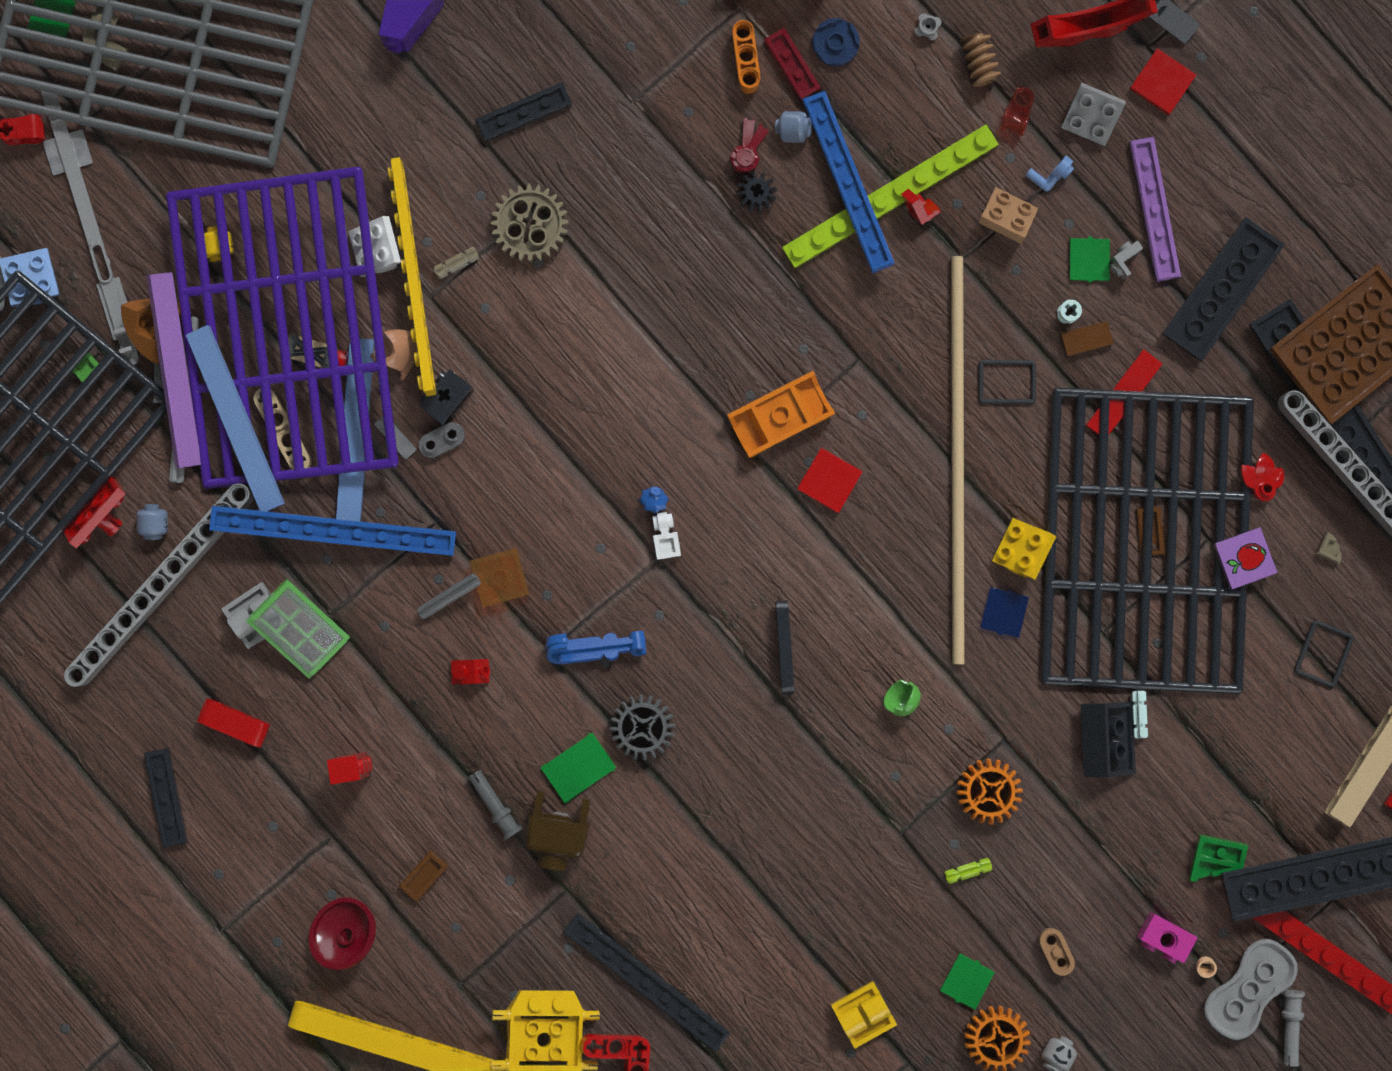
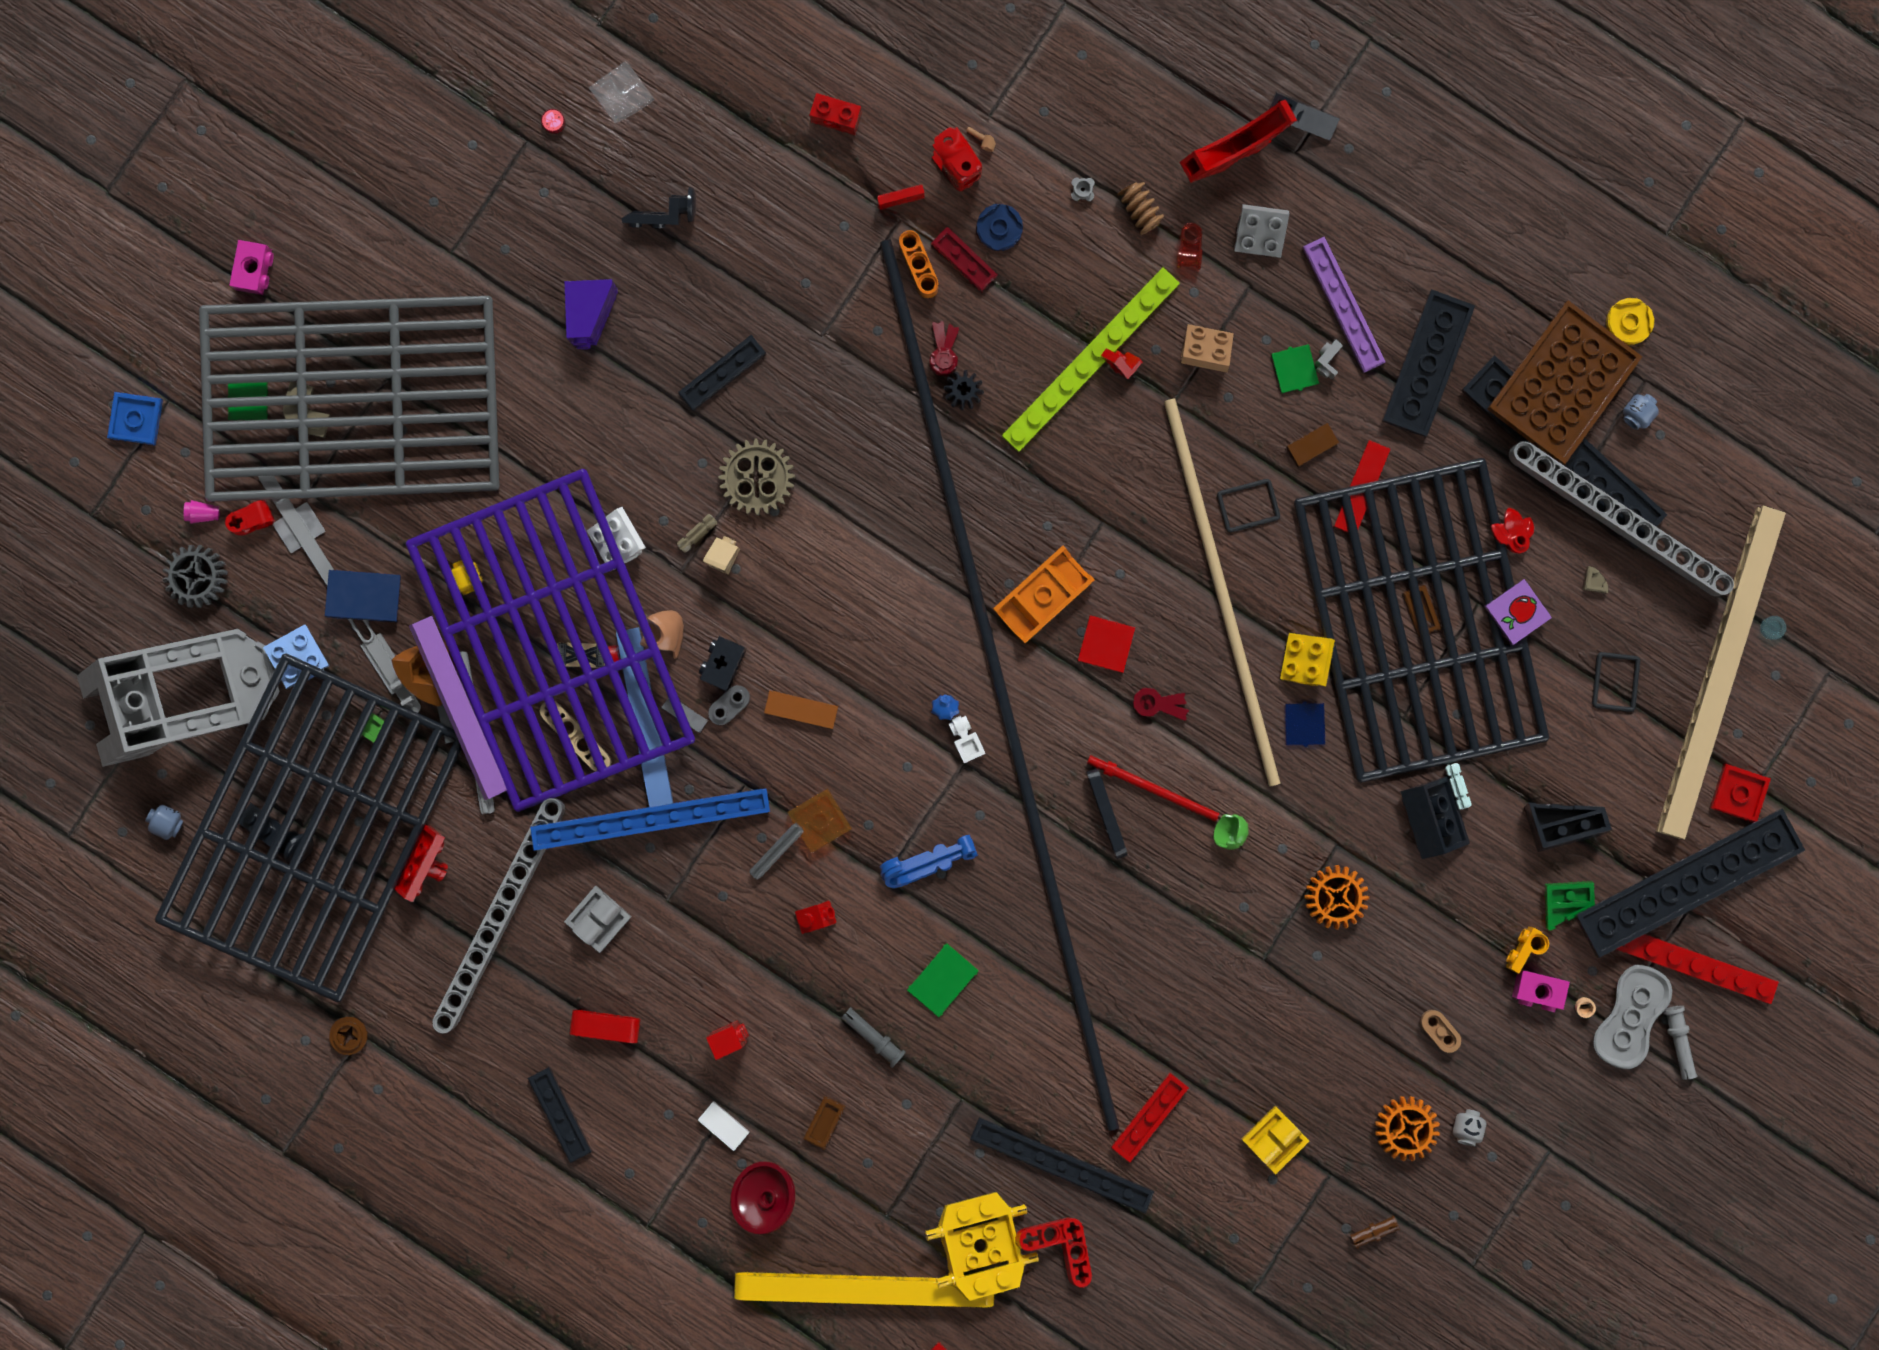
camera: 15 degrees left, 0 degrees up
(111, 235) = (362, 596): none -> dark blue tile
(152, 522) = (475, 857): sand blue head -> none
(235, 419) = (528, 738): medium blue tile -> none
(298, 628) = (642, 921): clear piece -> none
(323, 852) = (723, 1125): none -> white tile
(413, 286) = (663, 566): yellow plate -> none
(474, 290) = (722, 554): none -> tan slope
(511, 463) = (801, 709): none -> dark orange tile
(556, 834) = (940, 1049): dark brown piece -> none
(659, 713) = (983, 939): dark grey gear -> none
(710, 709) = (999, 686): none -> black piece
(745, 958) = (1149, 1117): none -> red plate
(793, 126) = (981, 318): sand blue head -> none
(800, 604) = (1111, 769): none -> red bar
(848, 182) = (1048, 357): blue tile -> none
(856, 549) = (1149, 702): none -> dark red piece
(967, 981) = (1364, 1081): green piece -> none
(968, 870) = (1337, 977): lime axle -> none
(1063, 169) = (1246, 291): medium blue plate -> none
(1075, 314) = (1282, 423): light aqua bush -> none
(1153, 899) = (1518, 957): none -> light orange plate
(1162, 81) = (1318, 182): red tile -> none
(1232, 780) = (1562, 825): none -> black wedge

